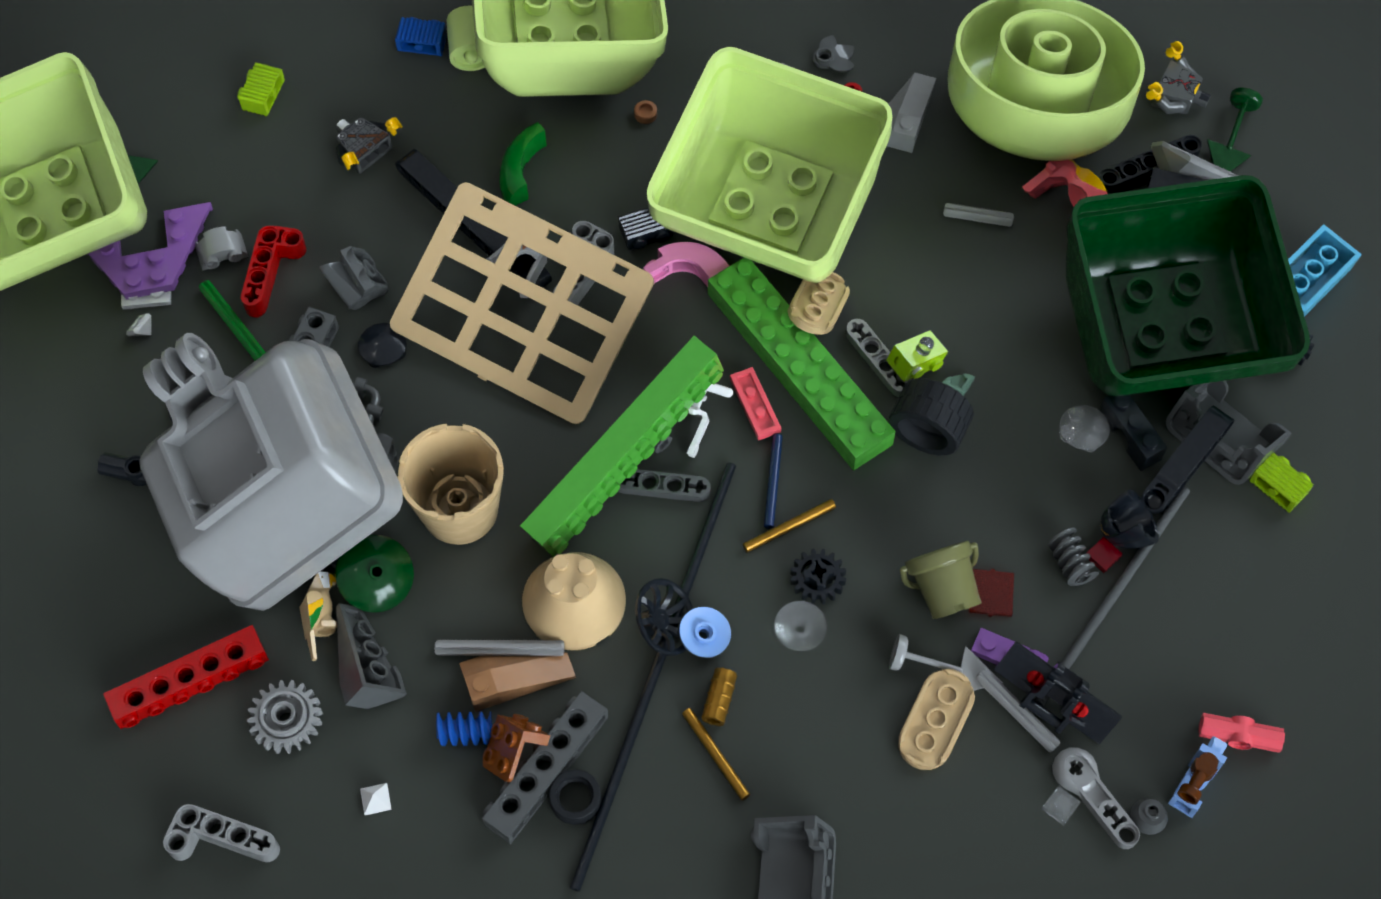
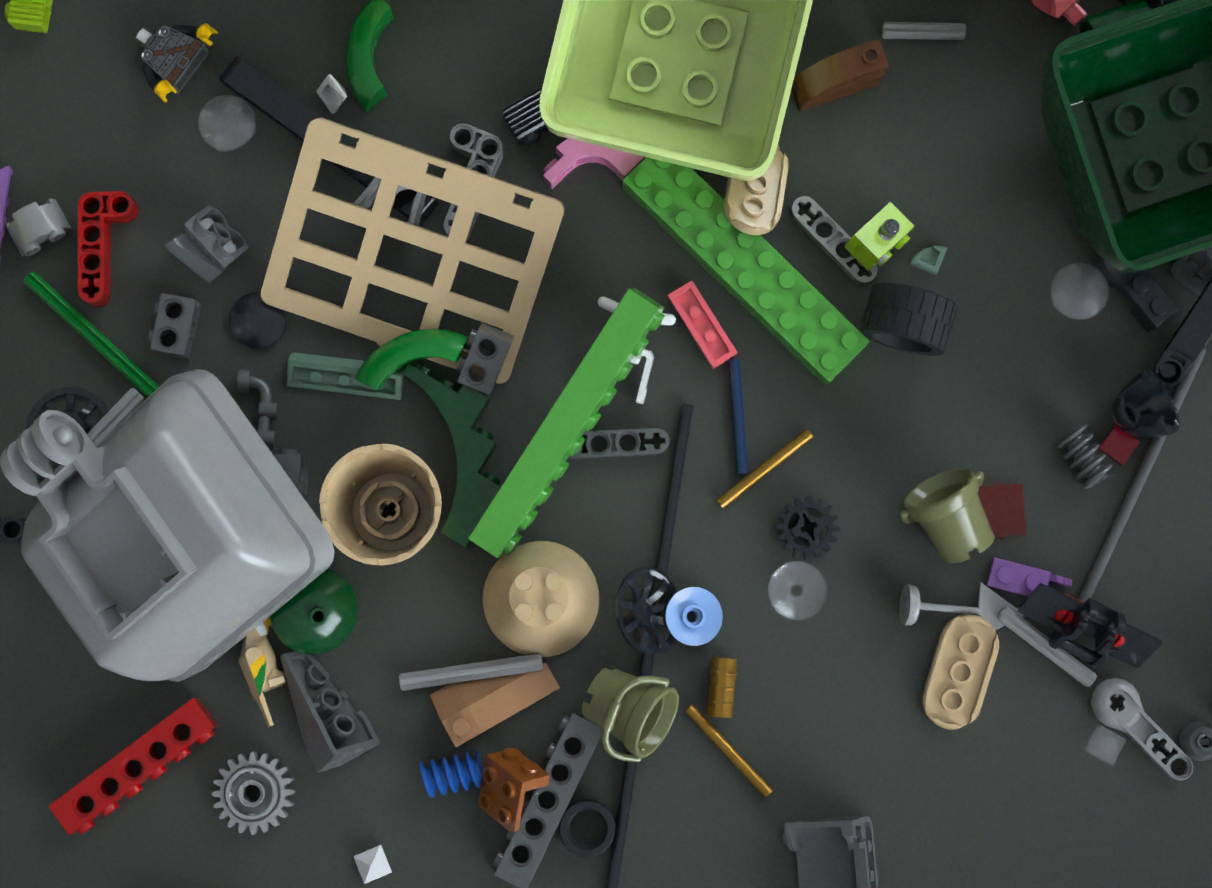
camera: 10 degrees left, 20 degrees up
(393, 198) = (226, 122): none -> clear dish
(445, 399) = (337, 376): none -> sand green slope
(485, 184) = (332, 93): none -> white slope
(503, 377) = (408, 348): none -> green brick
(541, 465) = (472, 450): none -> dark green arch
(571, 399) = (489, 360): none -> dark grey brick
(635, 693) = (631, 710): none -> olive piece
(903, 230) = (840, 75): none -> reddish brown brick

